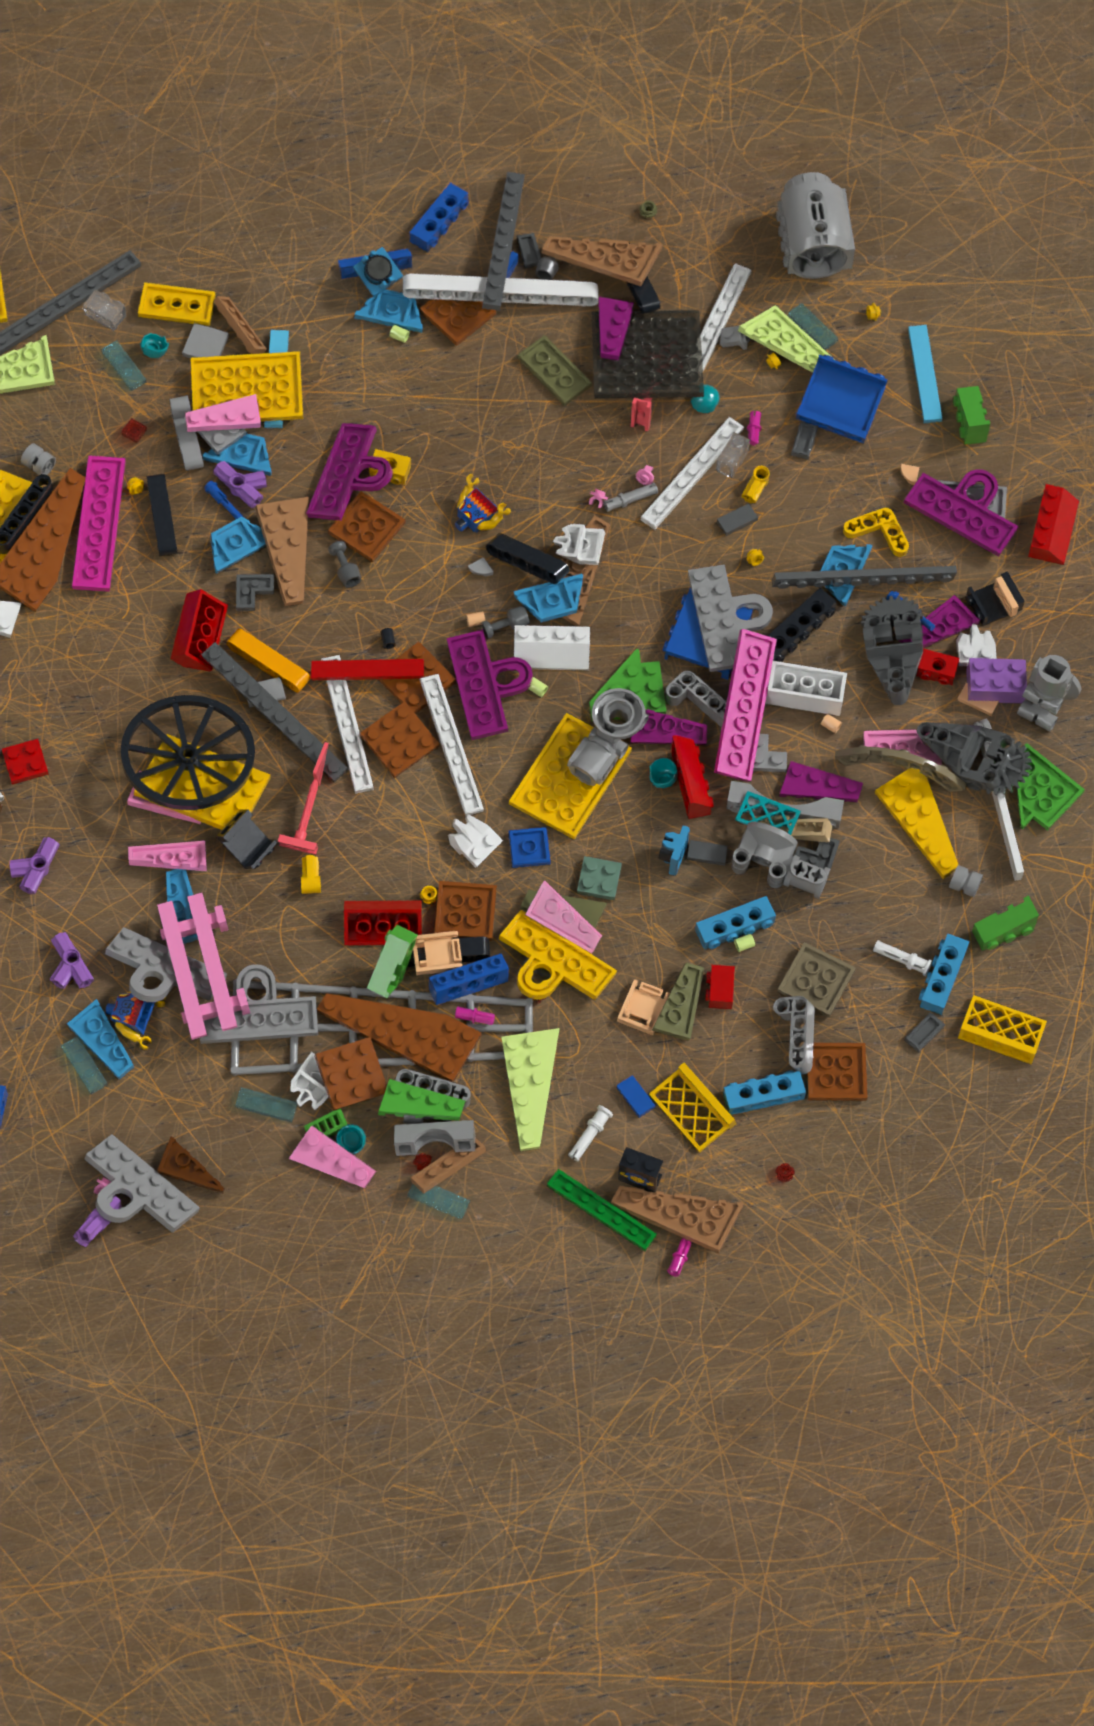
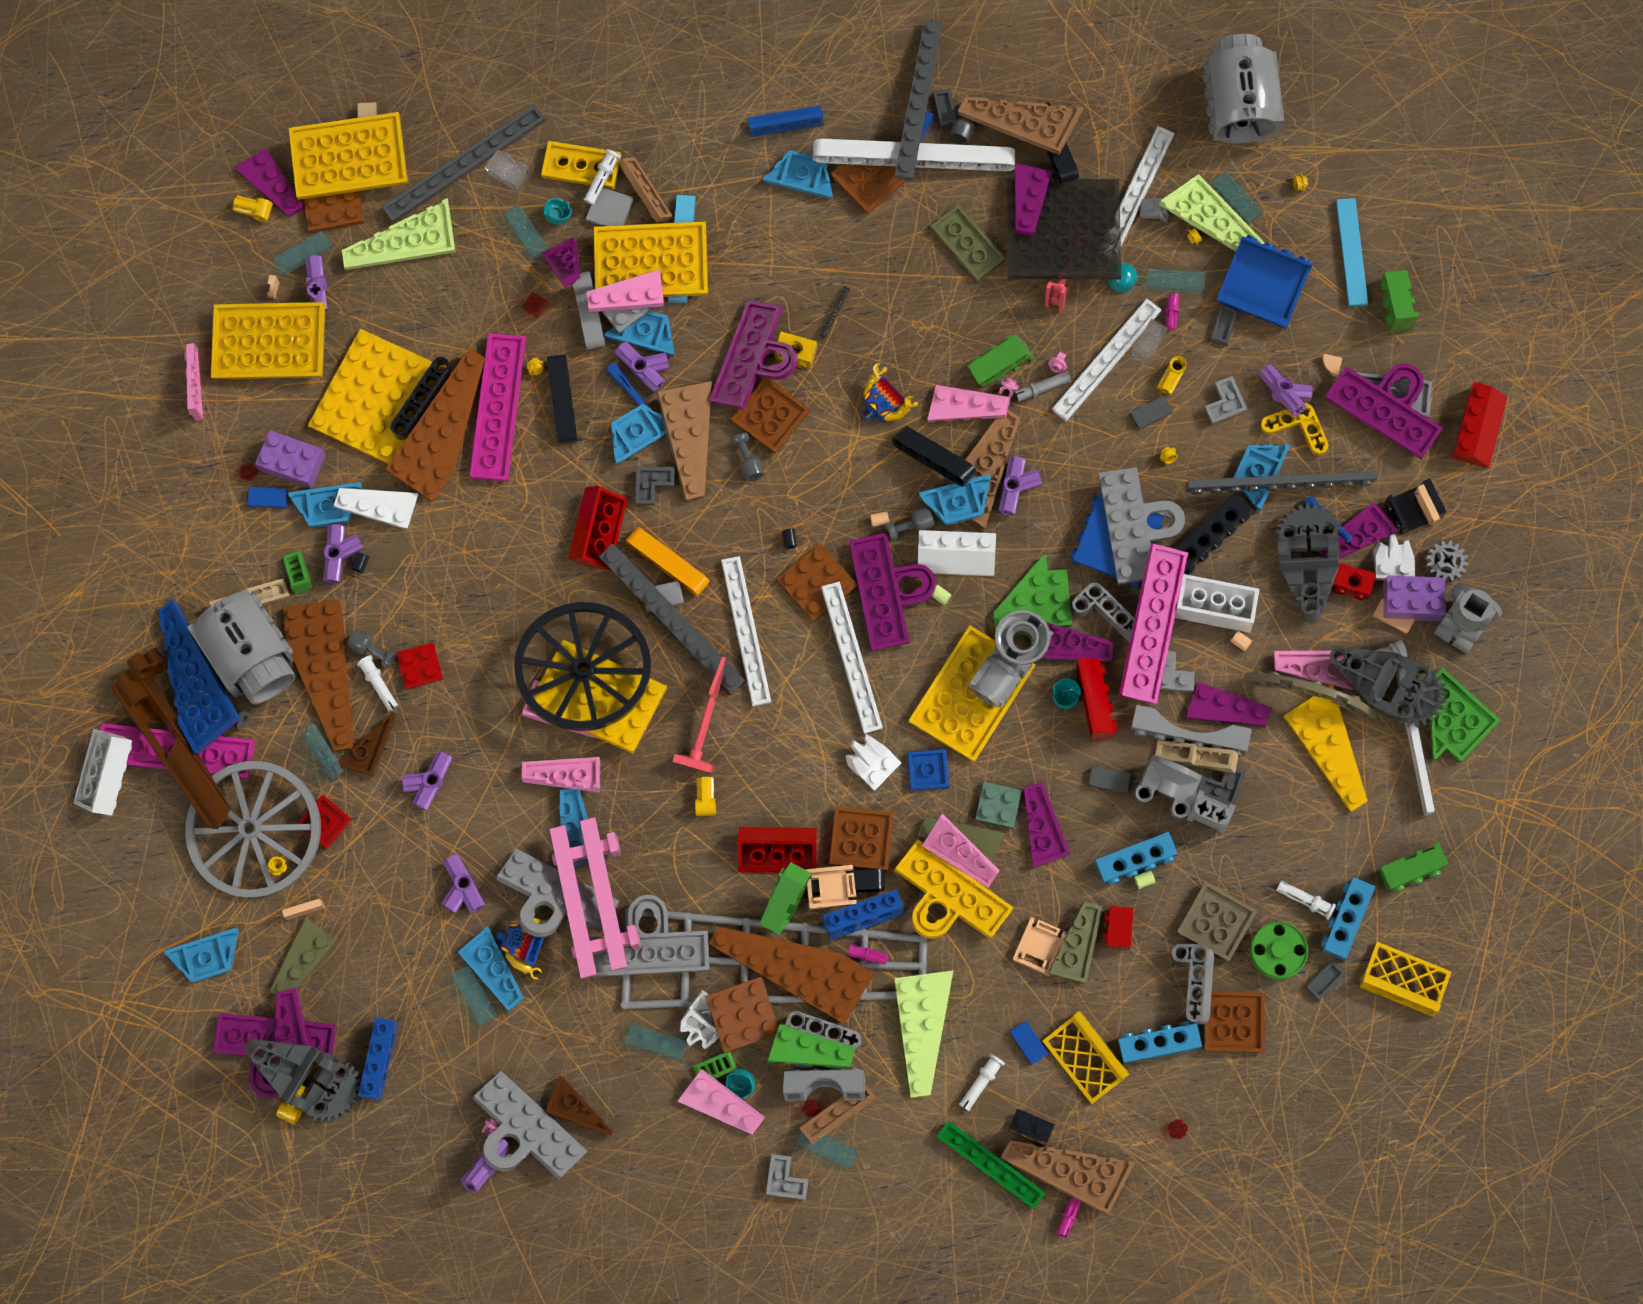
camera: 10 degrees right, 10 degrees up
(36, 458) = (437, 337): light grey wheel -> none
(161, 388) = (564, 261): none -> magenta wing
(200, 306) = (605, 169): none -> white pin
(246, 840) = (641, 759): black panel -> none
(367, 669) = (767, 574): red tile -> none
(377, 269) = (787, 132): piece -> none
(394, 1233) = (780, 1183): none -> light grey plate
(399, 333) = (808, 200): yellowish green hinge -> none
(399, 739) = (798, 650): dark orange plate -> none
(423, 440) = (834, 312): none -> clear smoke bar
(429, 890) = (822, 815): yellow plate -> none
(439, 209) = (865, 47): blue brick -> none
(480, 567) = (886, 462): light grey tile -> none
(547, 513) = (963, 404): none -> bright pink wing
(580, 544) = (989, 441): white plate -> none
(589, 472) = (1000, 360): none -> bright green wedge
(614, 581) = (1023, 481): none -> medium lavender piece
(645, 901) = (1044, 830): none -> magenta wing
(648, 205) = (1069, 59): olive plate -> none
(673, 849) = (1075, 778): dark azure piece -> none
(756, 400) = (1176, 280): none -> clear light blue tile
(764, 801) = (1169, 728): teal window -> none
(812, 509) = (1230, 403): none -> light grey plate
(866, 497) = (1285, 391): none -> medium lavender piece
(877, 1004) = (1278, 951): none -> bright green piece
(966, 881) = (1374, 818): light grey wheel -> none
(1027, 644) = (1450, 568): none -> light grey gear

